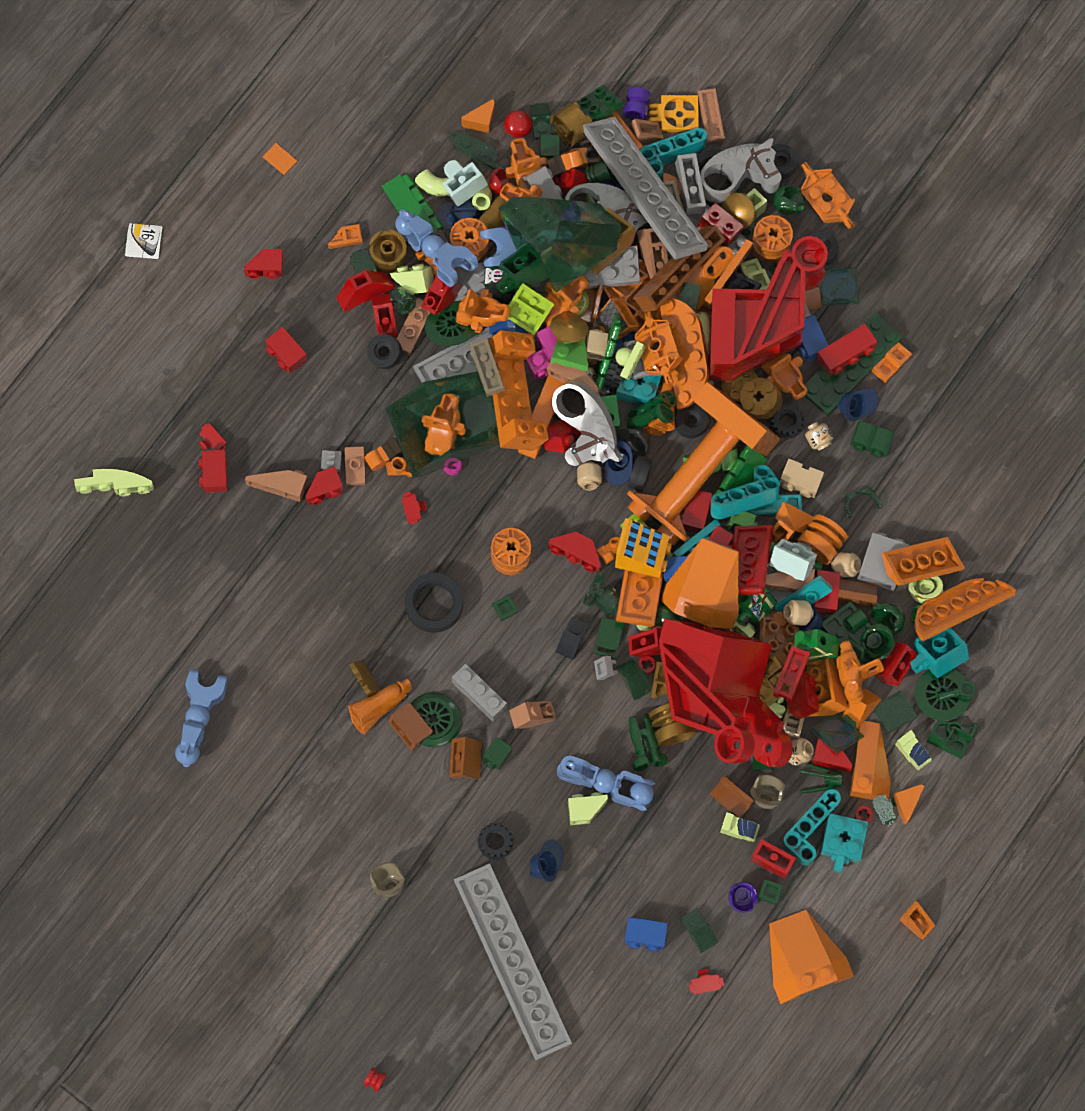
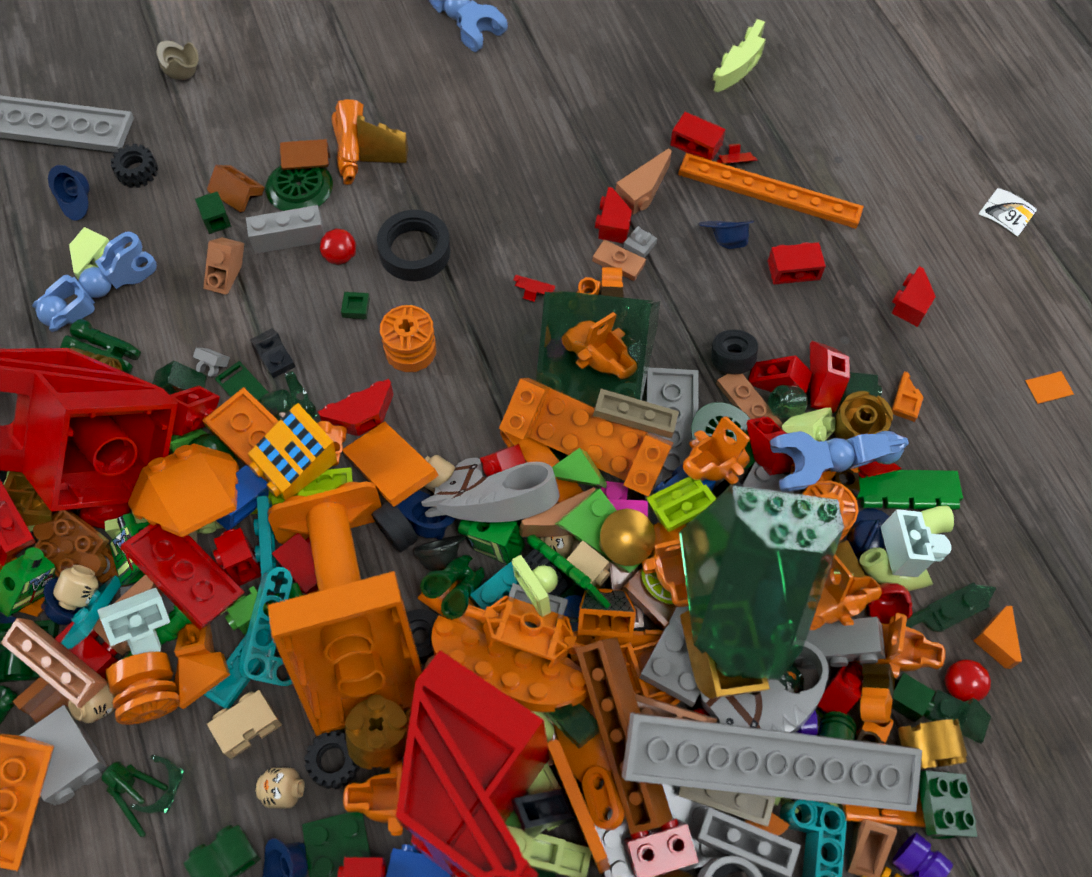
camera: 125 degrees right, 10 degrees down
(228, 402) = (771, 190): none -> orange tile
(286, 406) = (730, 234): none -> dark blue piece
(466, 652) = (338, 246): none -> red hair
(540, 384) = (579, 469): none -> bright green slope
(603, 502) = (390, 463): none -> orange tile
(843, 593) = (53, 662): none -> nougat slope
(872, 522) = (120, 780): none -> dark green plant

